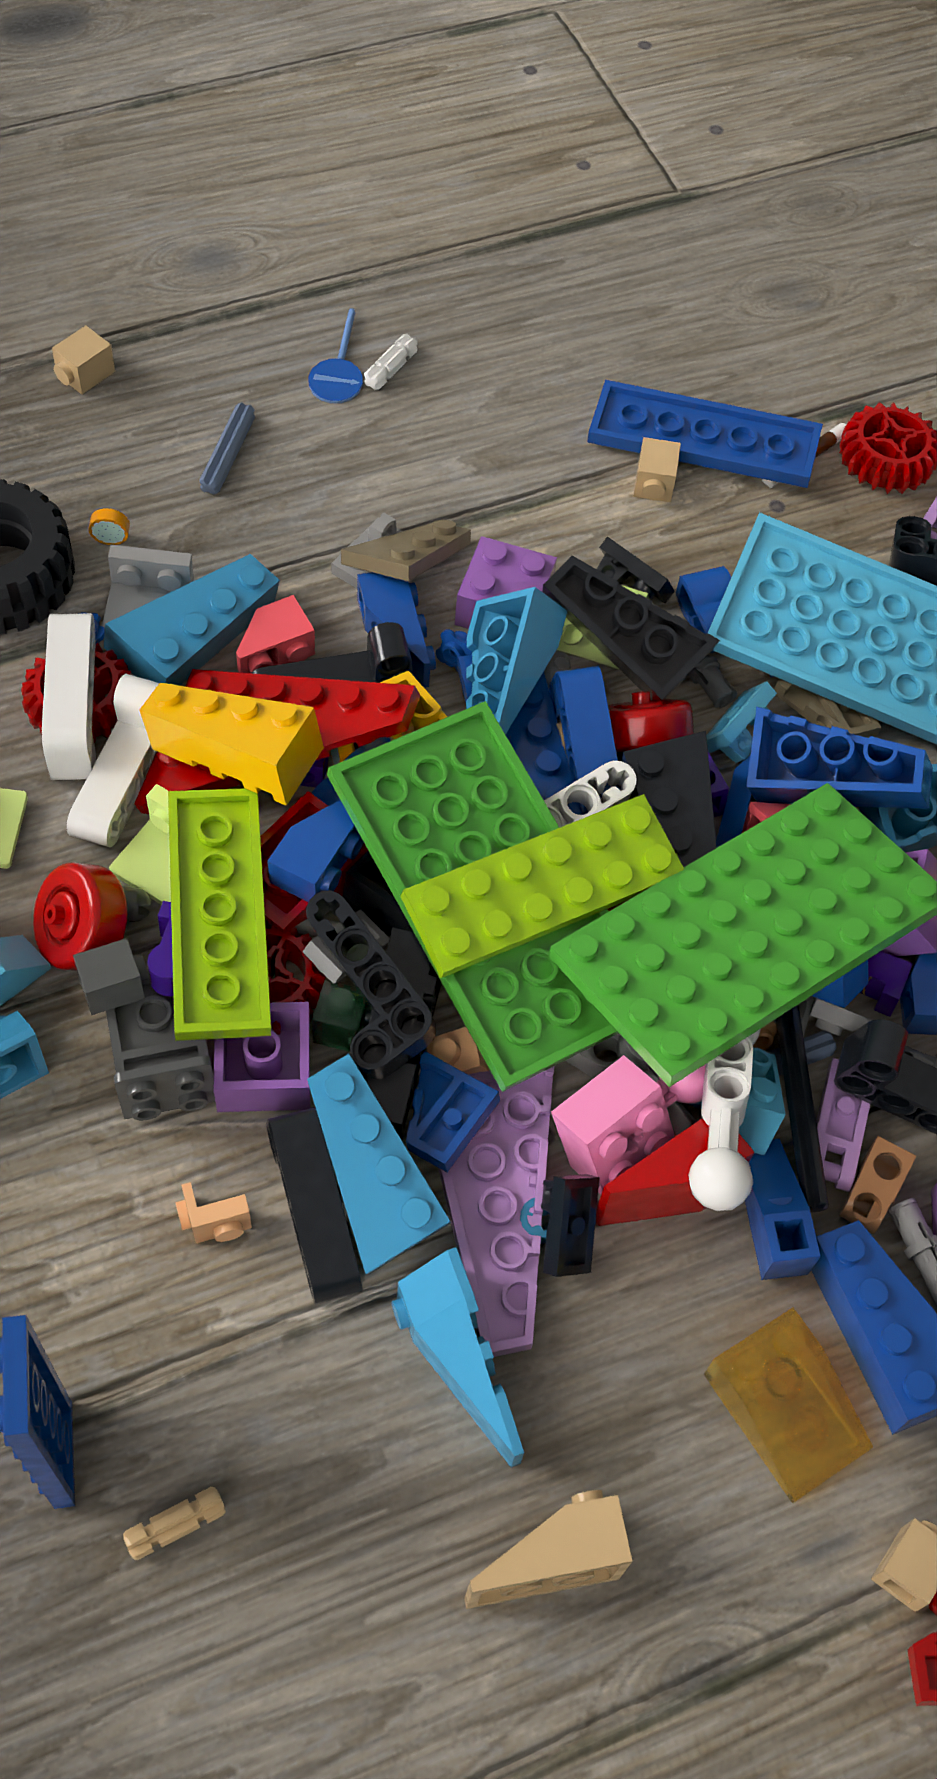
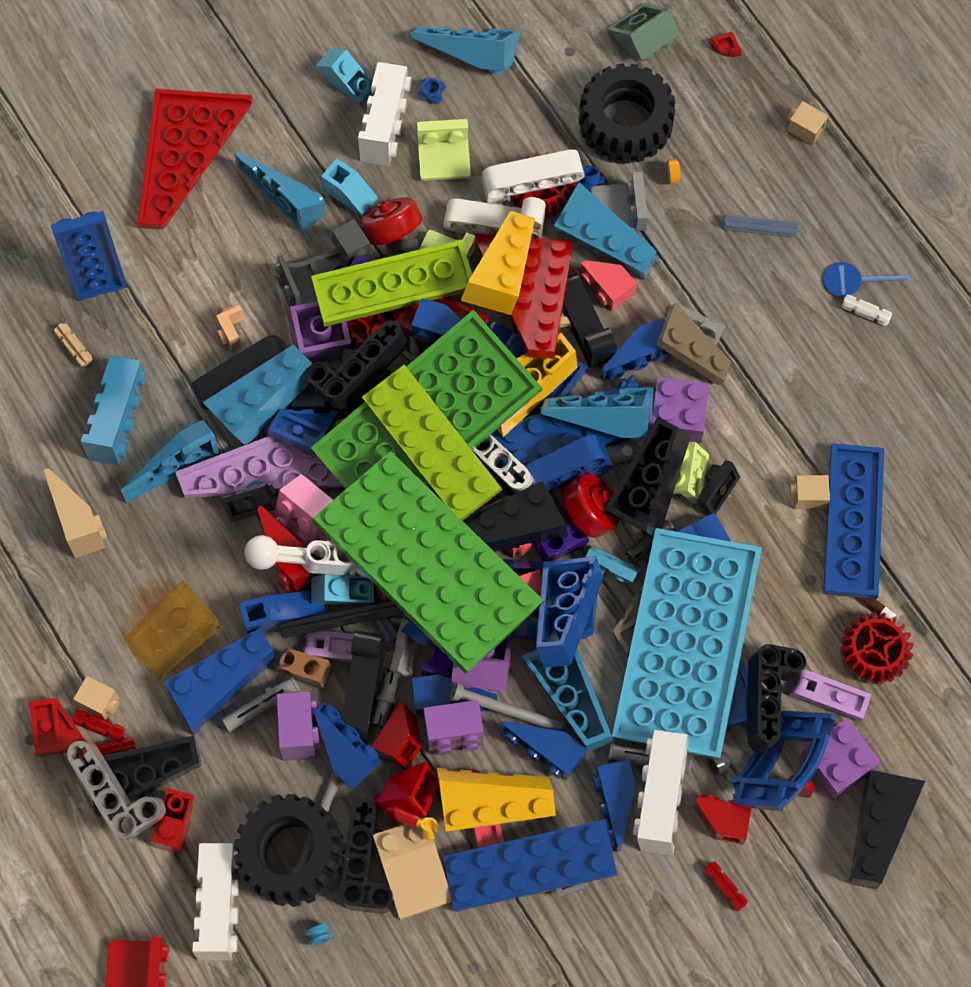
camera: 85 degrees right, 10 degrees up
(338, 1450) = (114, 411): none -> dark azure wedge

